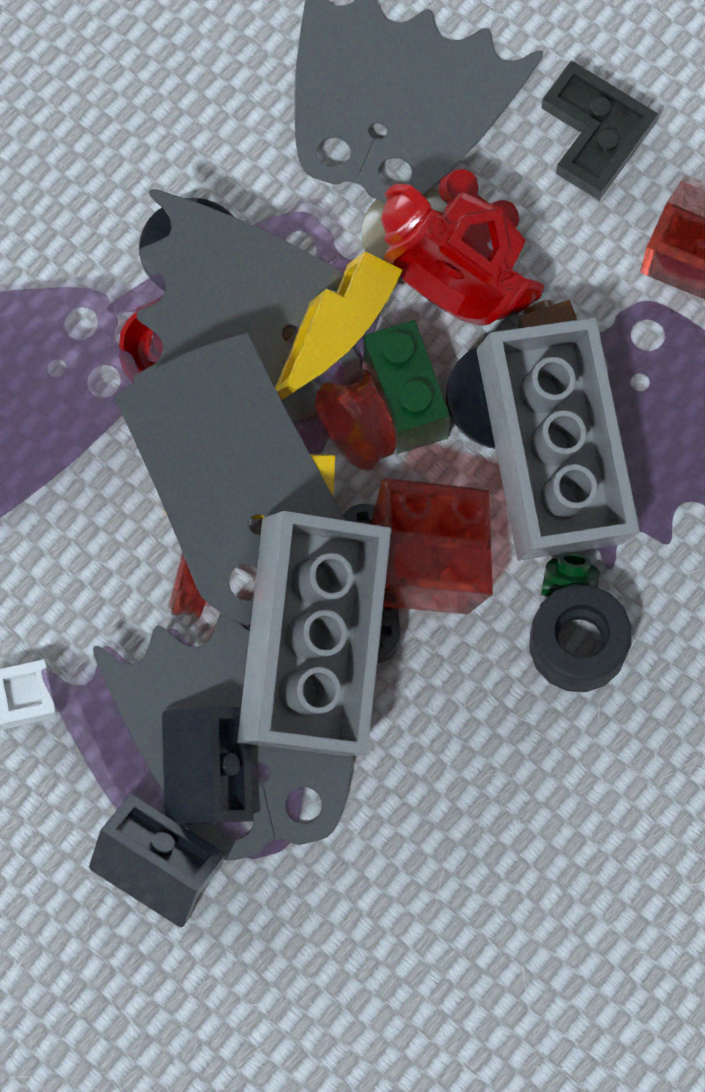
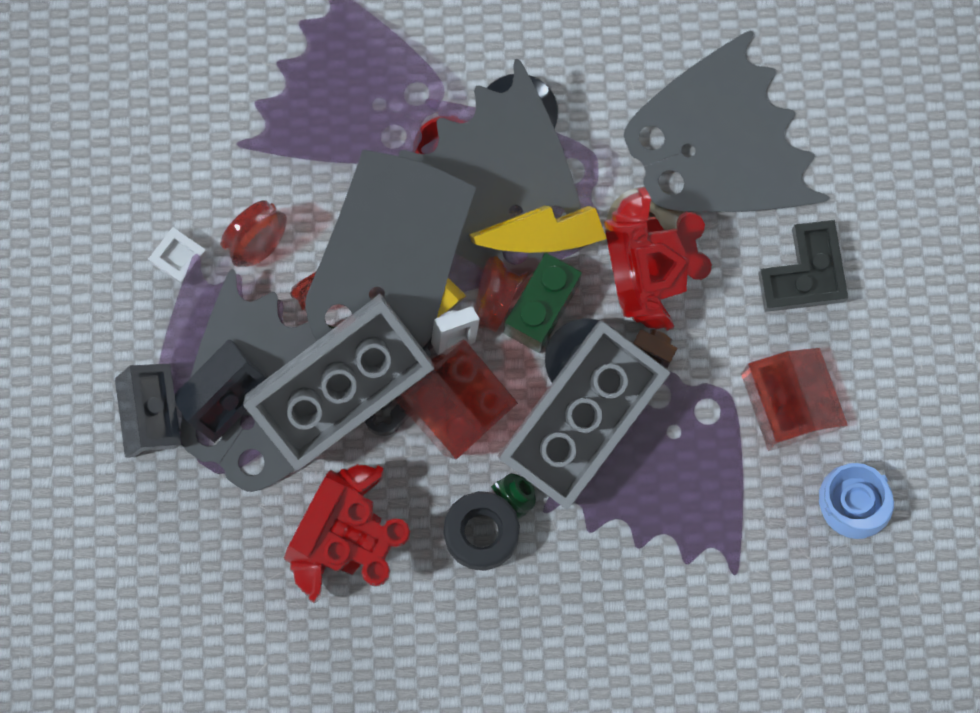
camera: 45 degrees right, 5 degrees up
(76, 596) = (254, 234): none -> clear red piece
(358, 486) = (453, 327): none -> white plate
(469, 763) = (343, 532): none -> red piece

